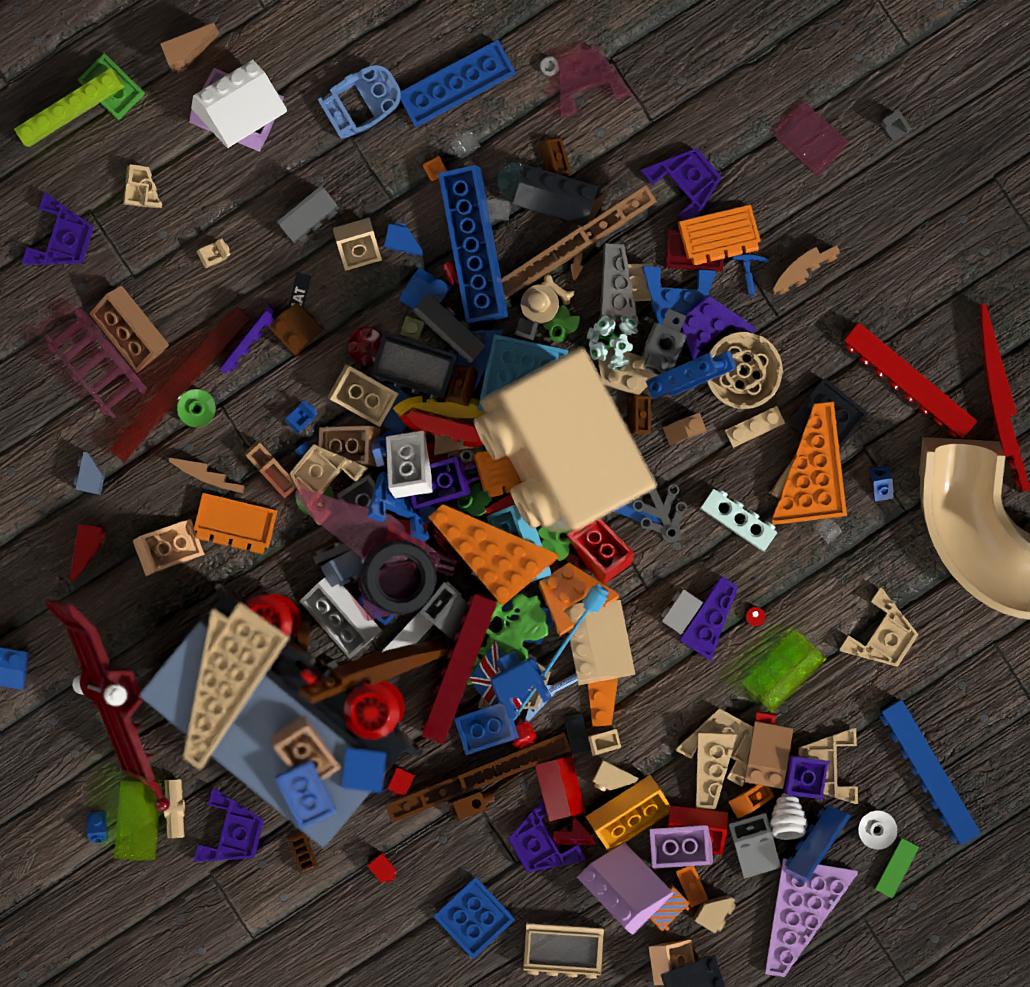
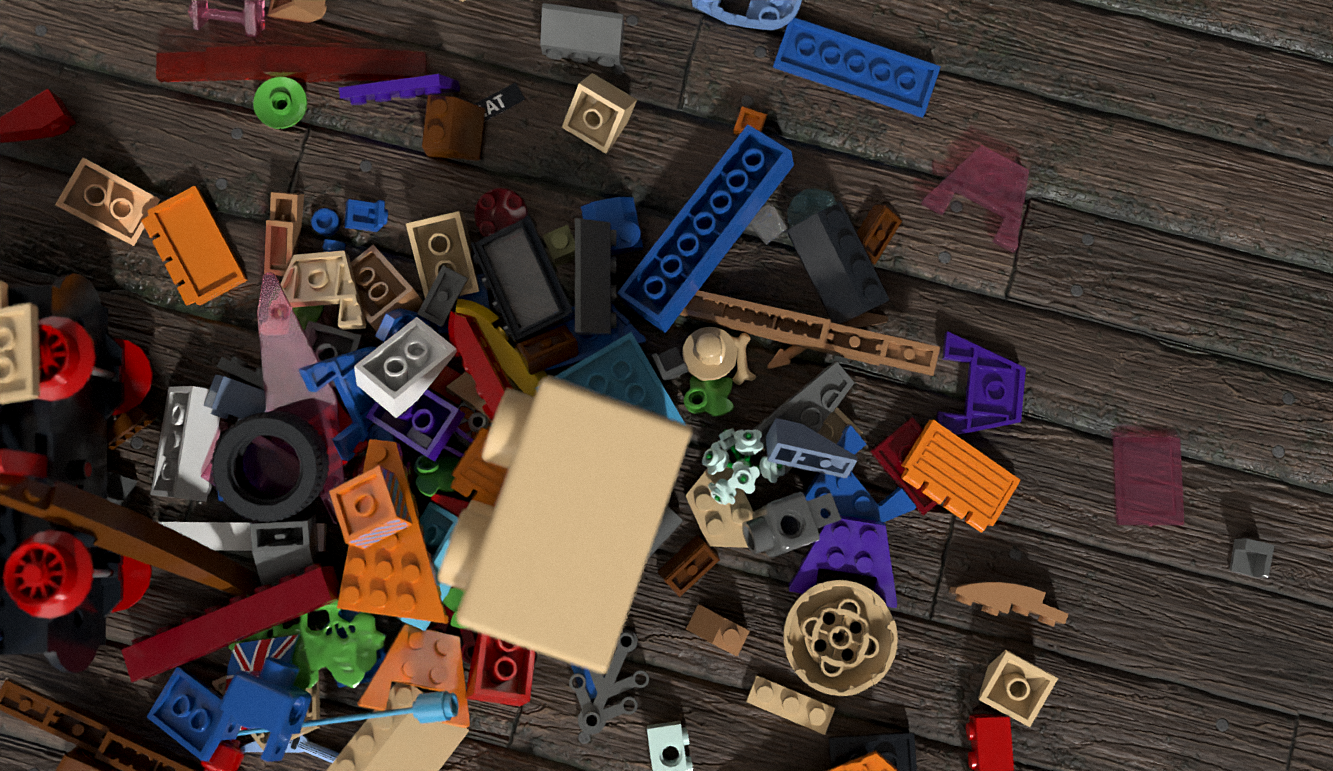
camera: 45 degrees right, 5 degrees down
(90, 476) = (115, 58): sand blue slope -> none
(200, 471) = (216, 168): medium nougat slope -> none
(283, 441) = (325, 222): none -> blue tile
(385, 414) = (442, 296): none -> dark grey plate
(400, 782) = (47, 677): red brick -> none
(401, 240) = (644, 152): blue slope -> none
(451, 272) = (658, 229): red pin -> none
(465, 144) = (802, 131): clear slope -> none
(468, 542) = (370, 507): none -> orange container
(549, 66) = (962, 144): light grey tile -> none
(634, 301) = (805, 449): none -> sand blue slope
(691, 374) = (782, 584): blue fence -> none
(748, 275) = (944, 546): blue piece -> none
(848, 305) = (1016, 687): none -> tan slope

